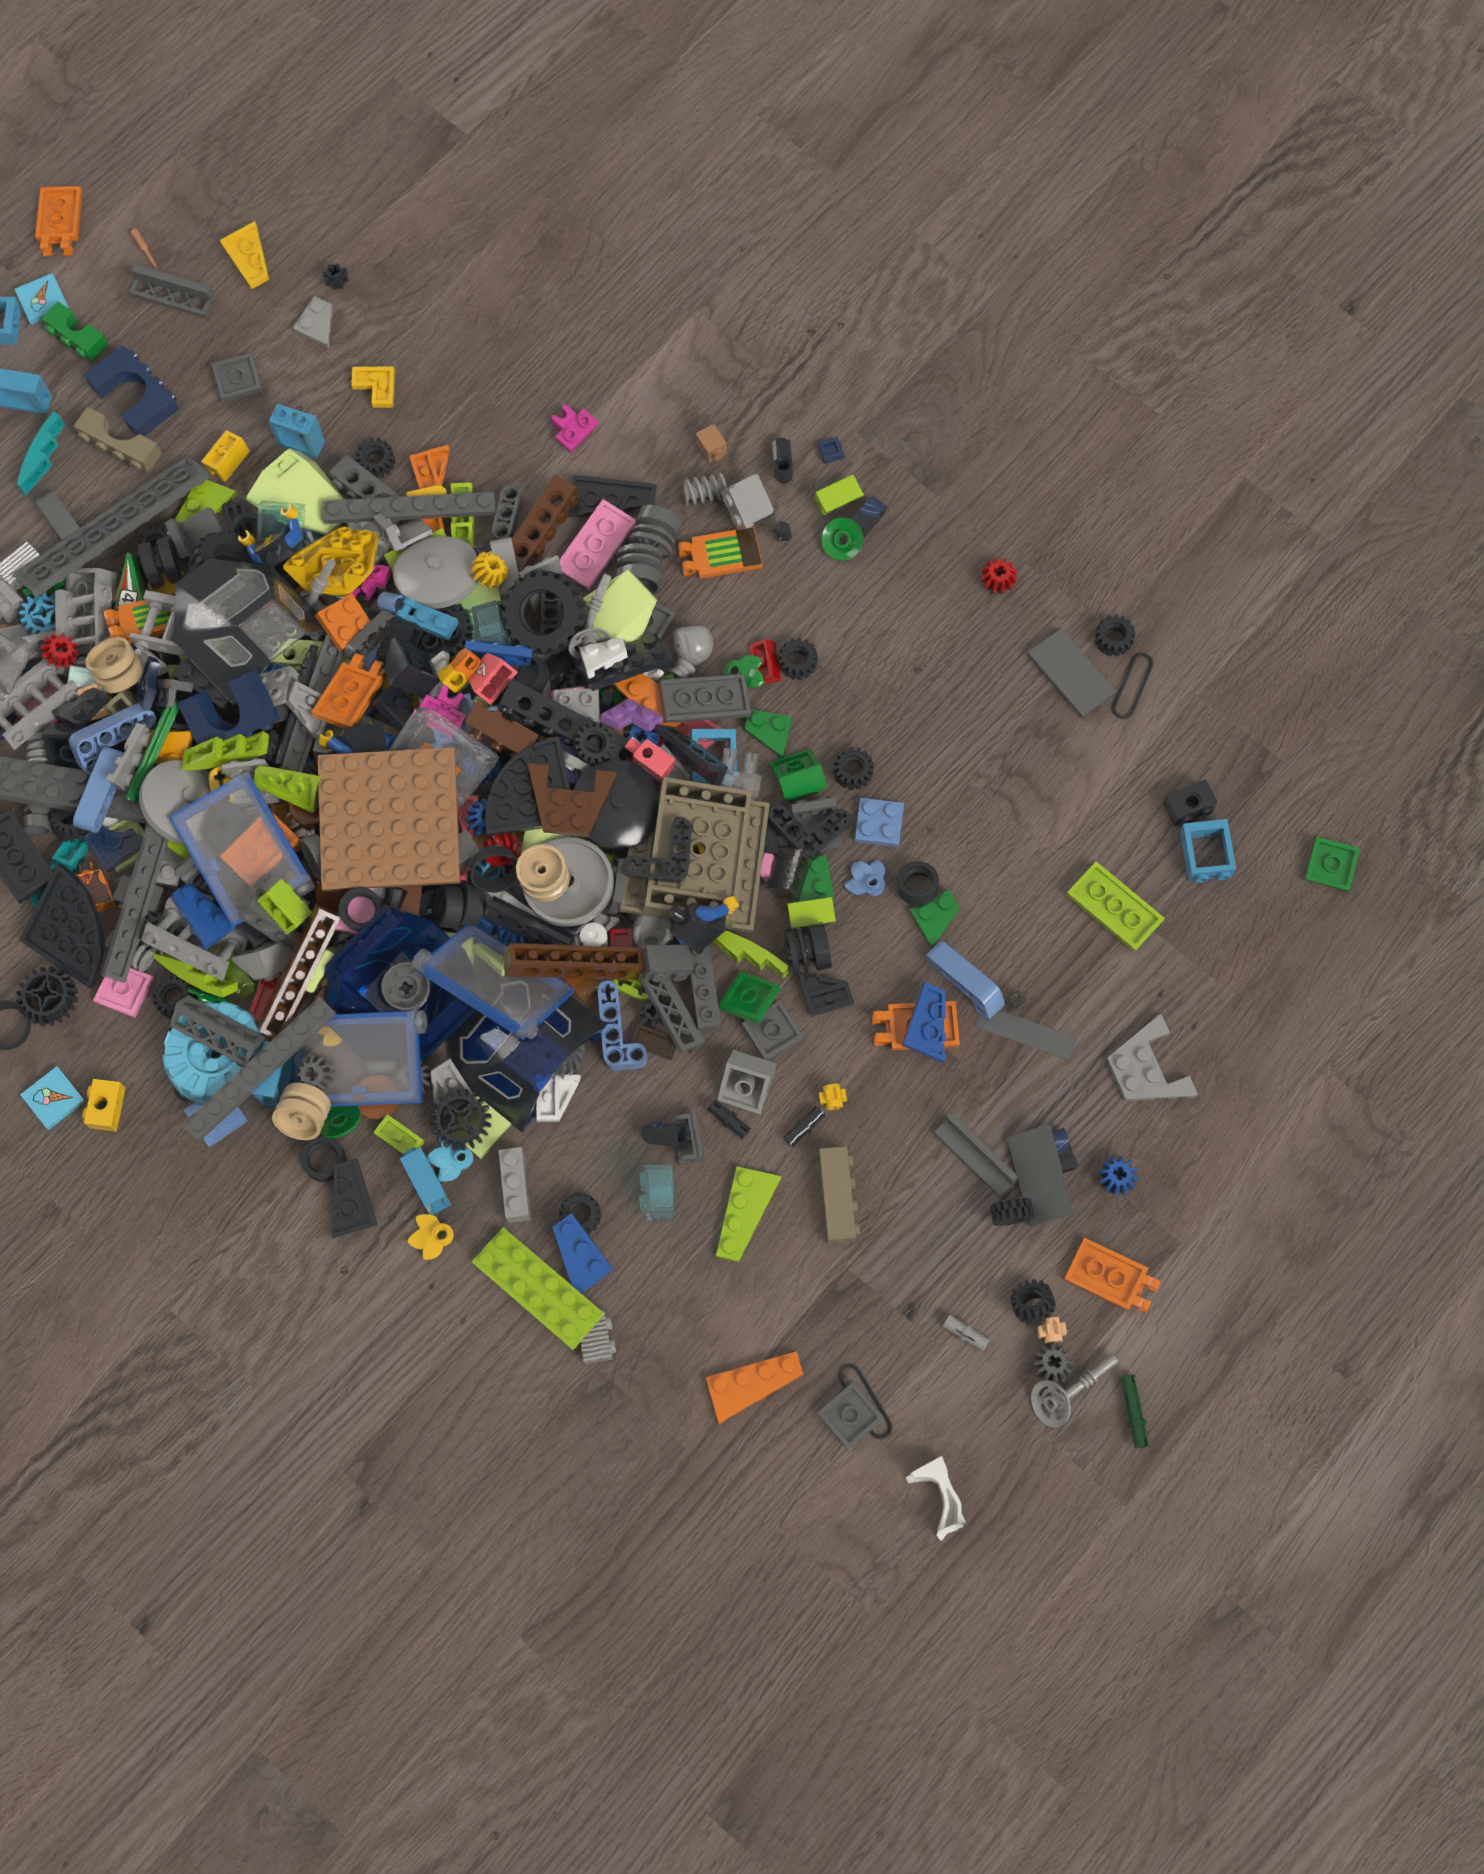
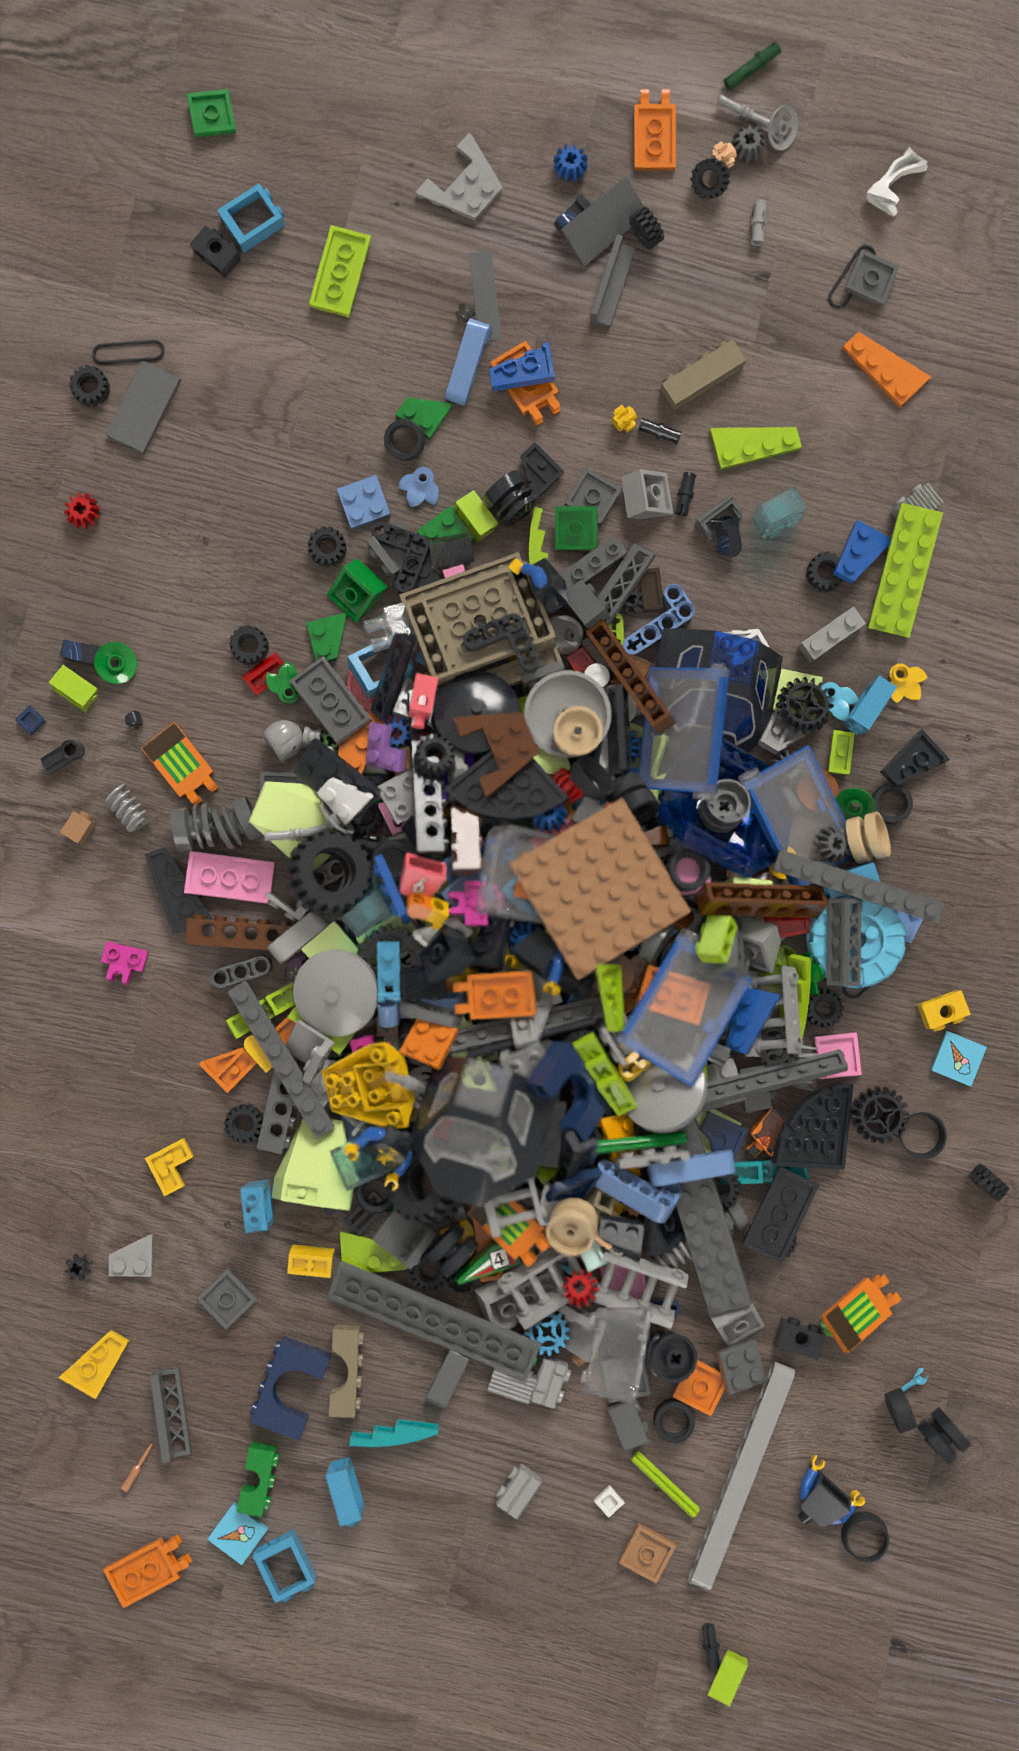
camera: 120 degrees left, 15 degrees up
(489, 570) = (314, 941): yellow gear -> none
(747, 502) = (122, 763): light grey bracket -> none

